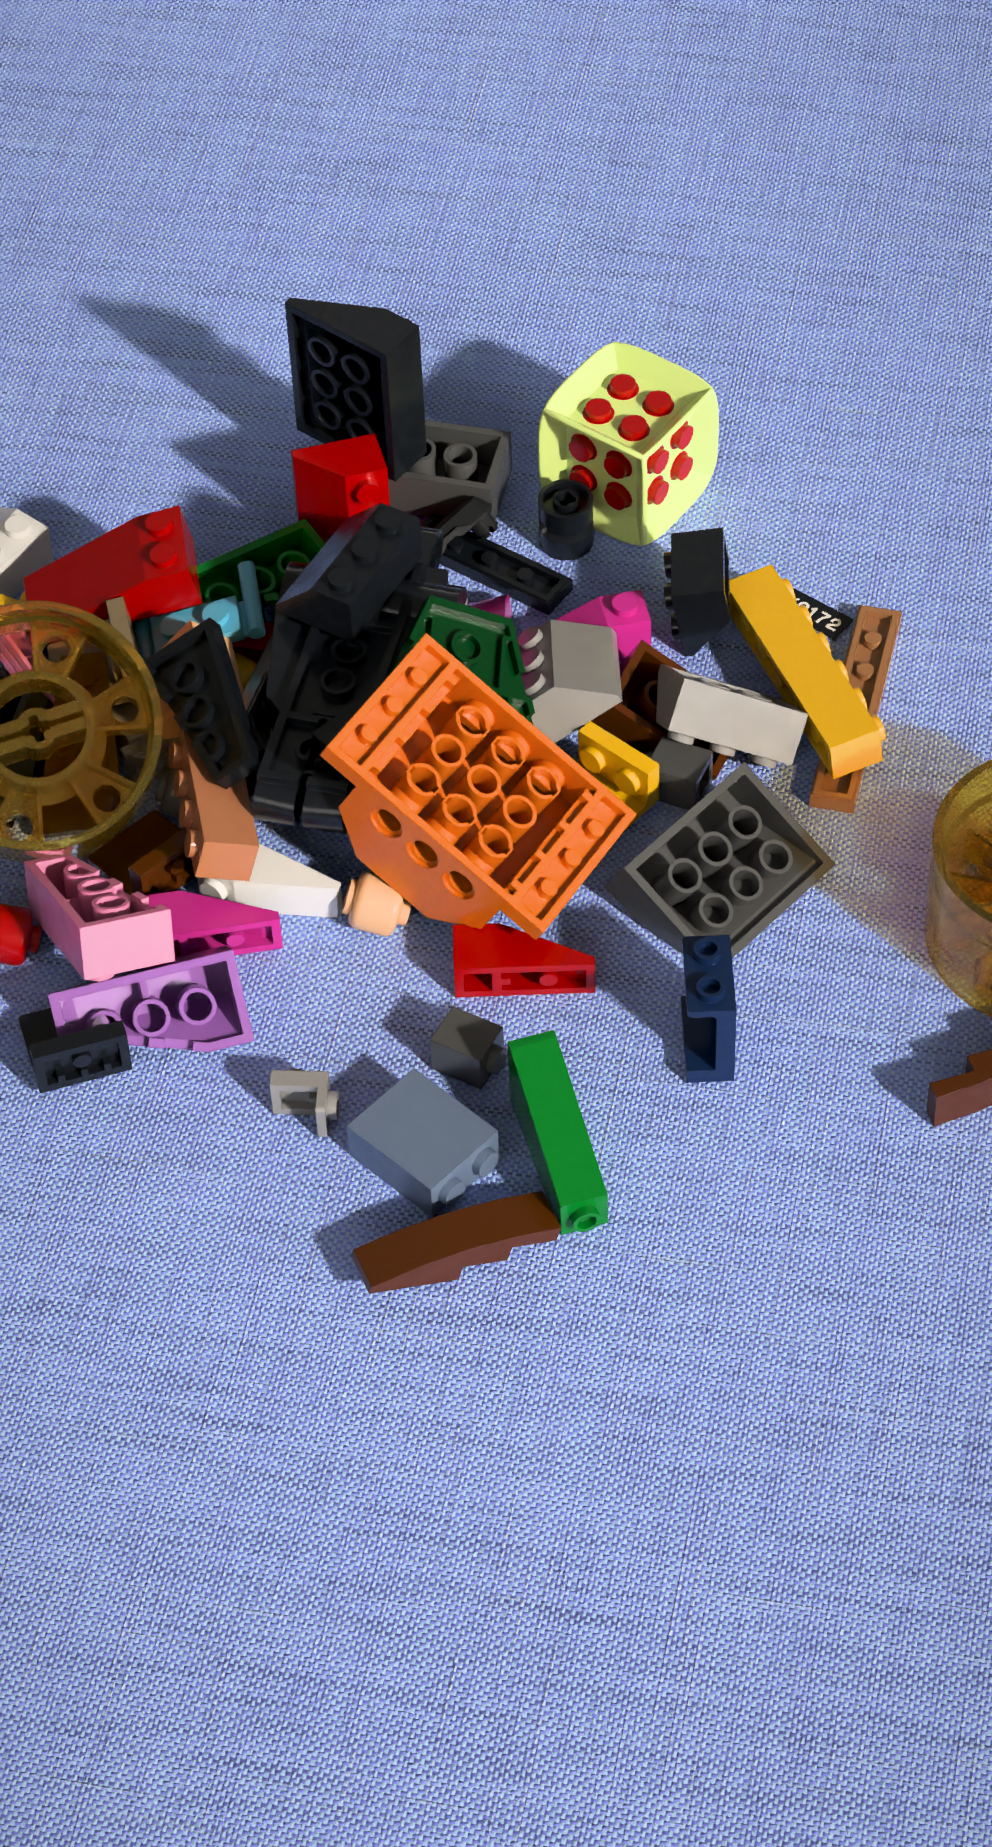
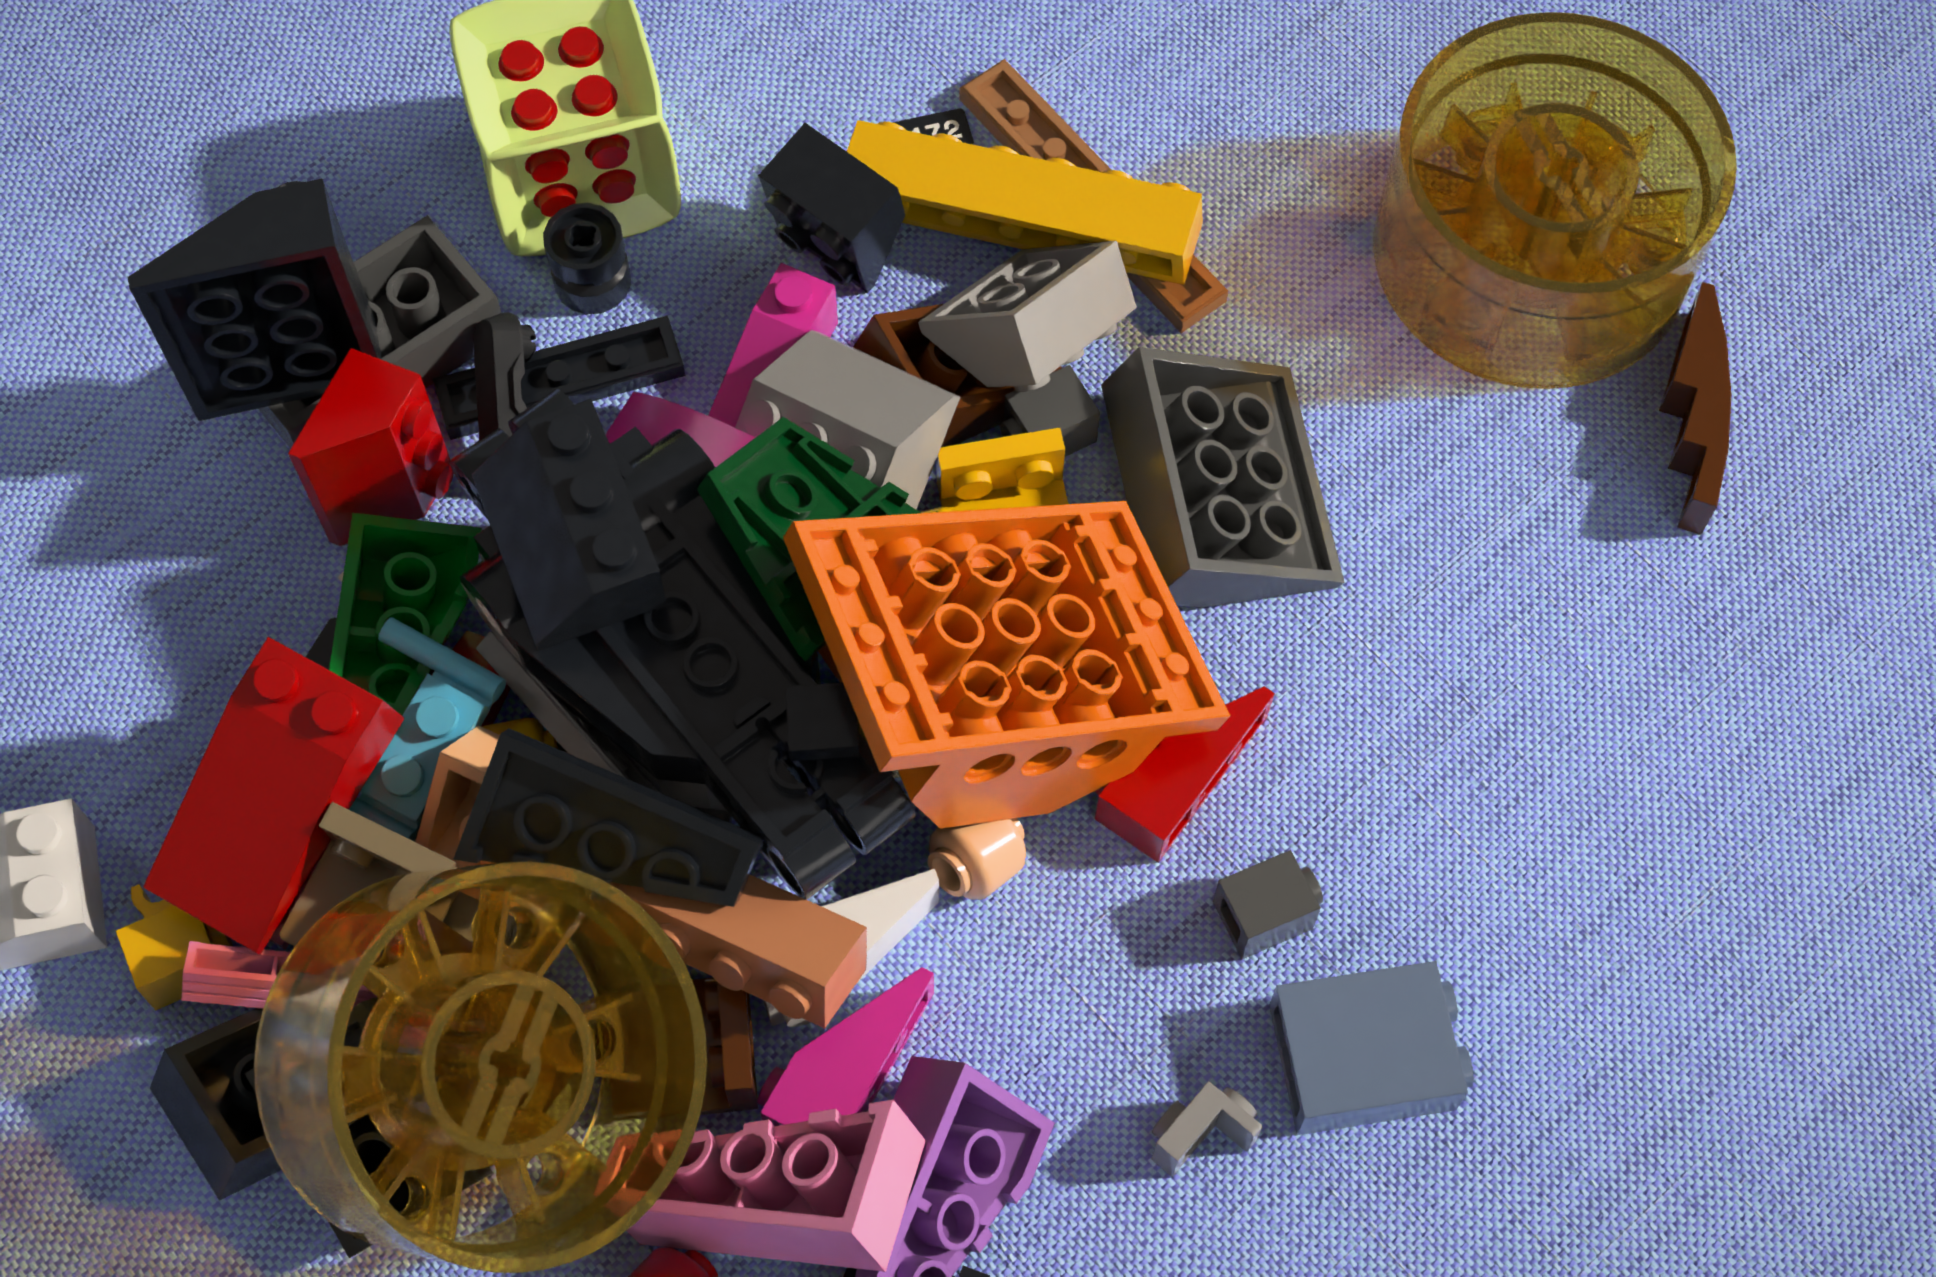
camera: 55 degrees left, 15 degrees up
(461, 1238) = (1538, 1118): reddish brown slope -> none
(556, 1132) = (1481, 905): green slope -> none
(708, 1009) = (1441, 628): dark blue panel -> none

